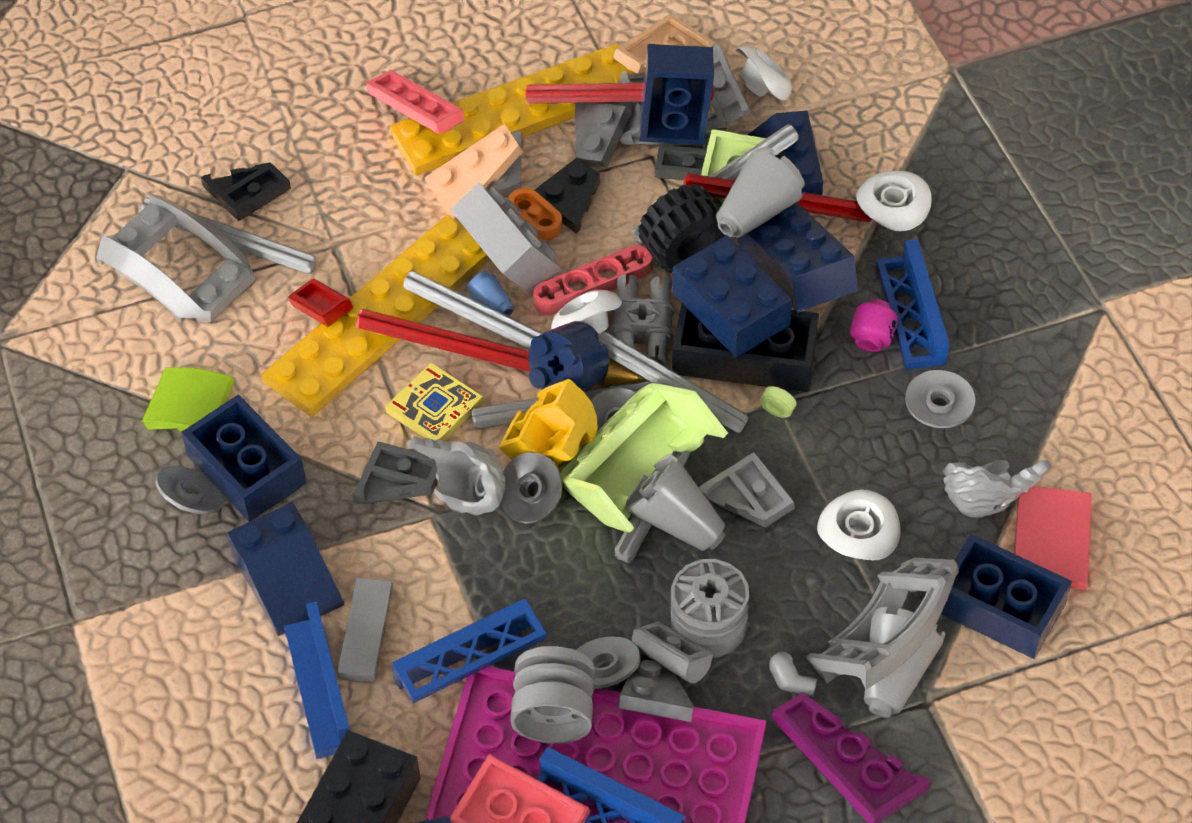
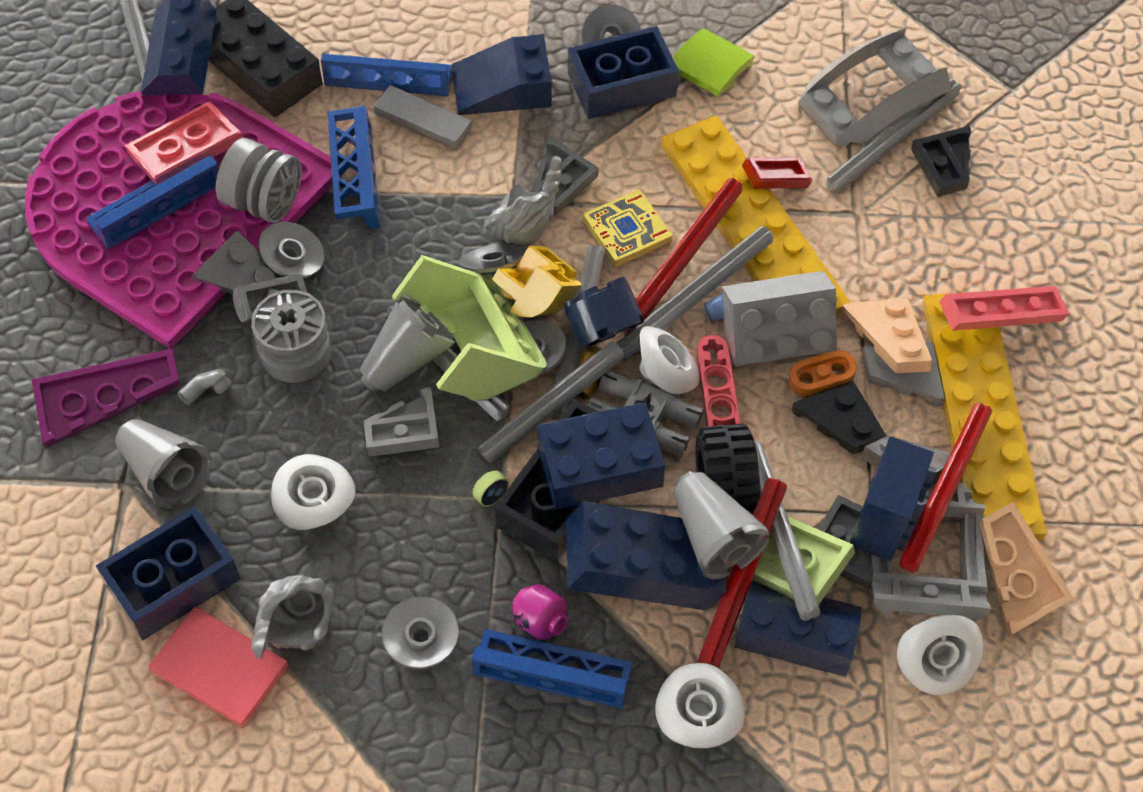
camera: 110 degrees right, 5 degrees up
(853, 653) = (216, 493): light grey wedge -> none

